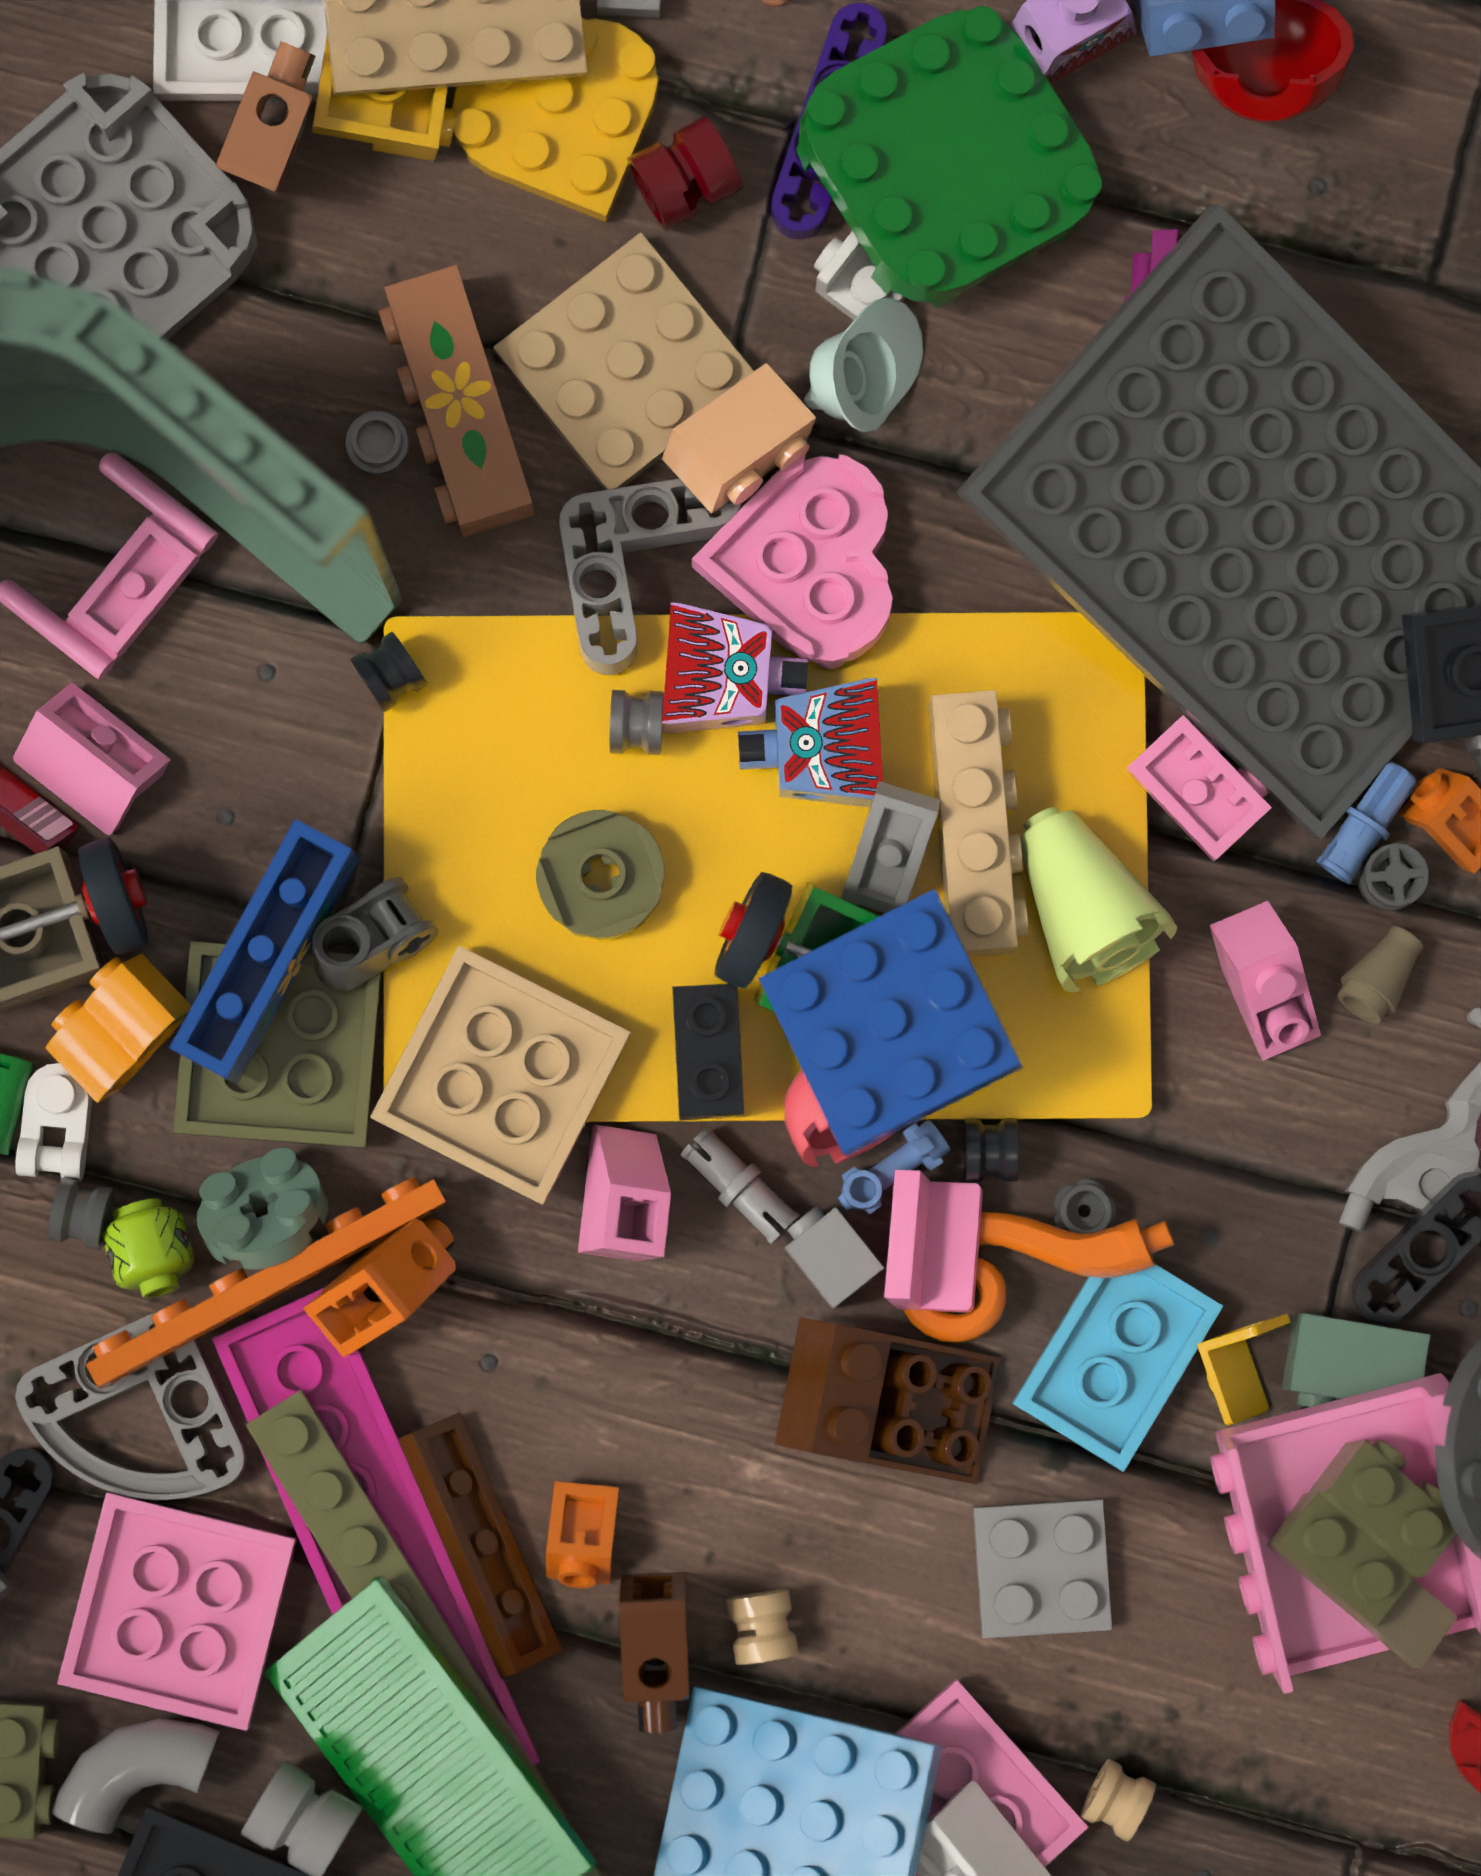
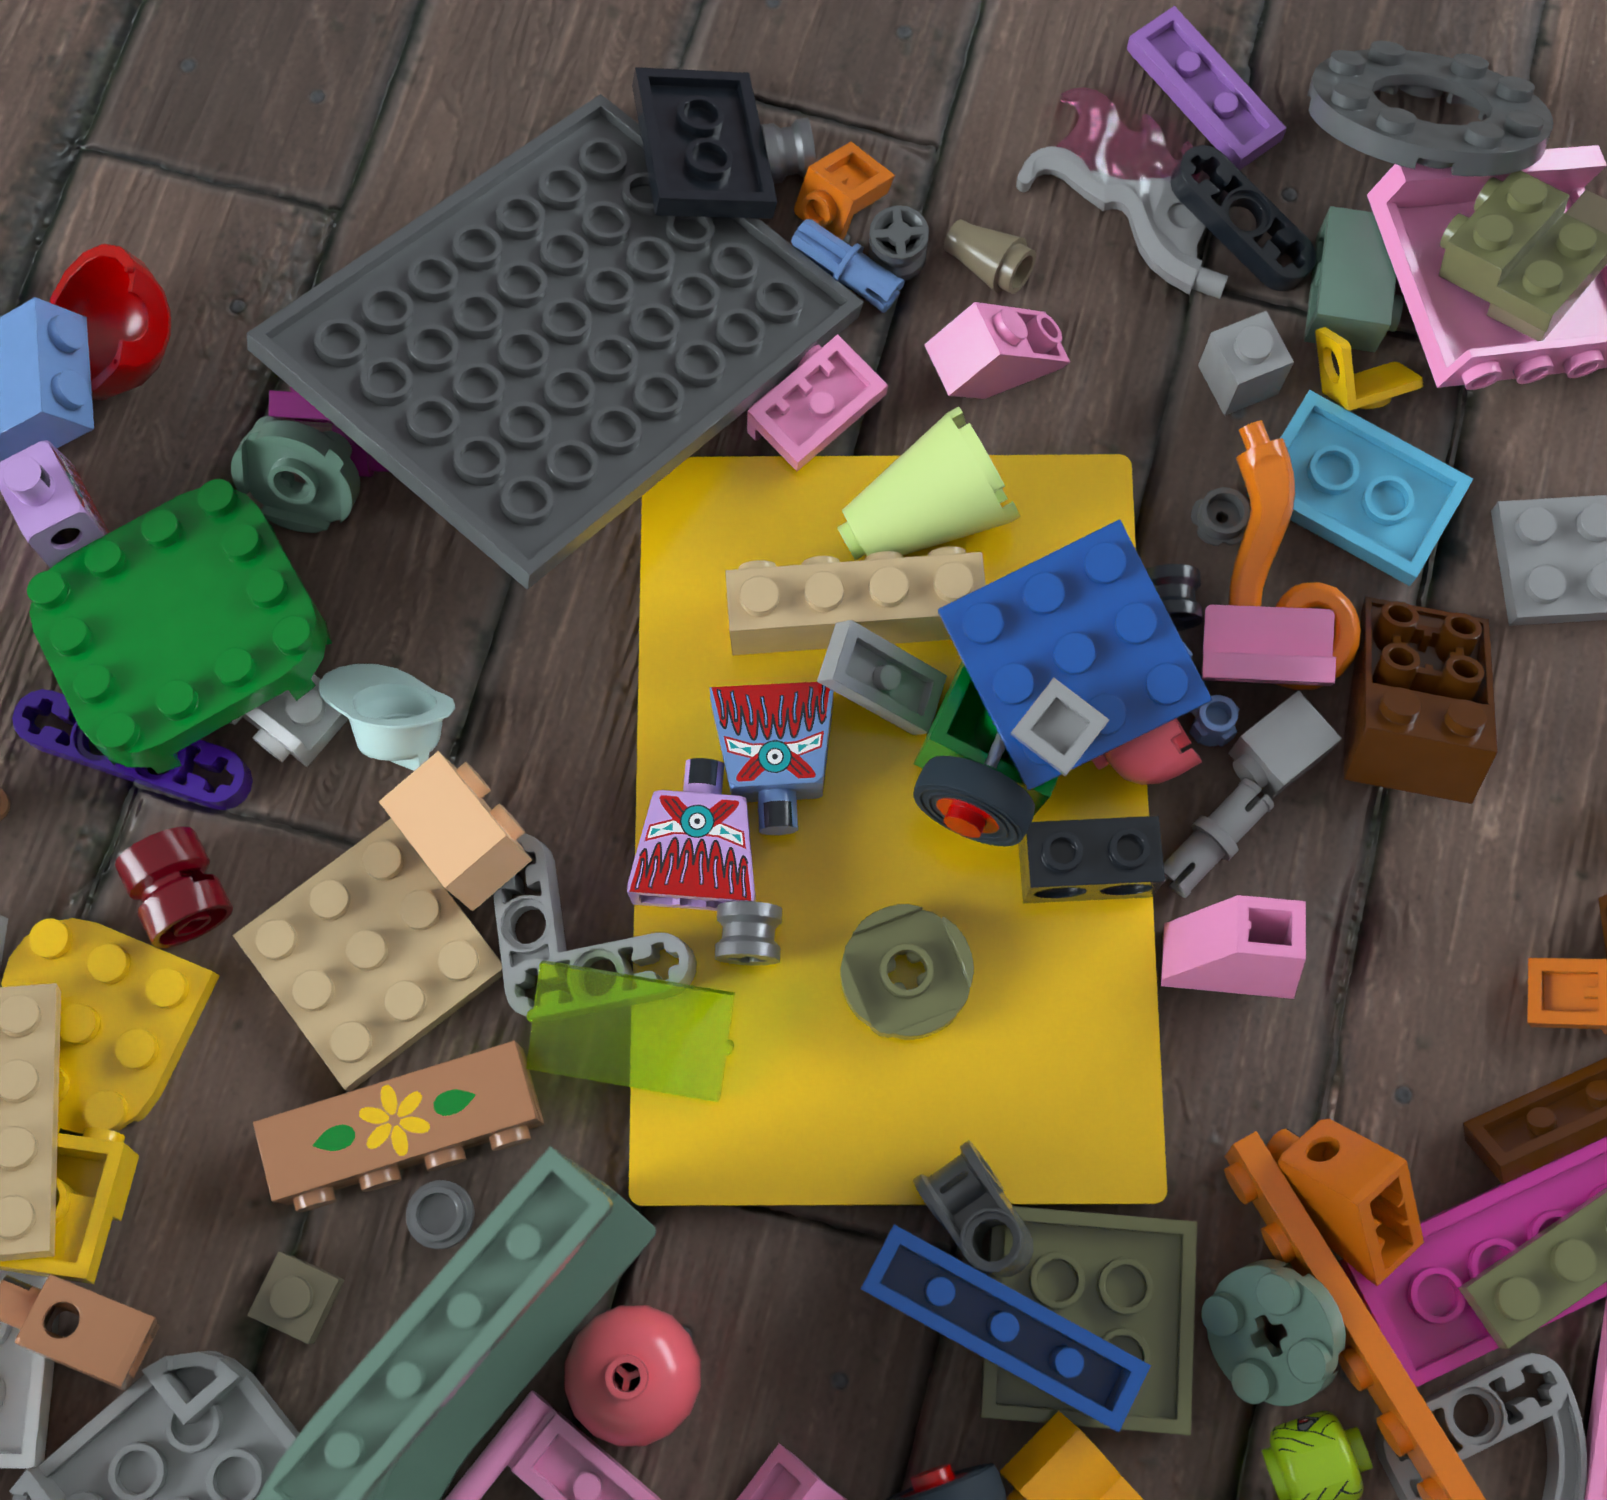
camera: 85 degrees left, 10 degrees down
(241, 650) = (666, 1368): none -> coral cylinder
(303, 315) = (296, 1297): none -> dark tan plate
(388, 671) = (691, 1195): black wheel -> none
(500, 1075) = (1119, 1076): tan plate -> none
(543, 612) = (630, 1030): none -> clear neon green piece
(807, 559) = (582, 766): bright pink plate -> none
(807, 999) = (1059, 726): none -> light grey plate
(1107, 259) = (317, 456): none -> sand green plate
(1252, 1239) = (1245, 363): none -> light grey brick

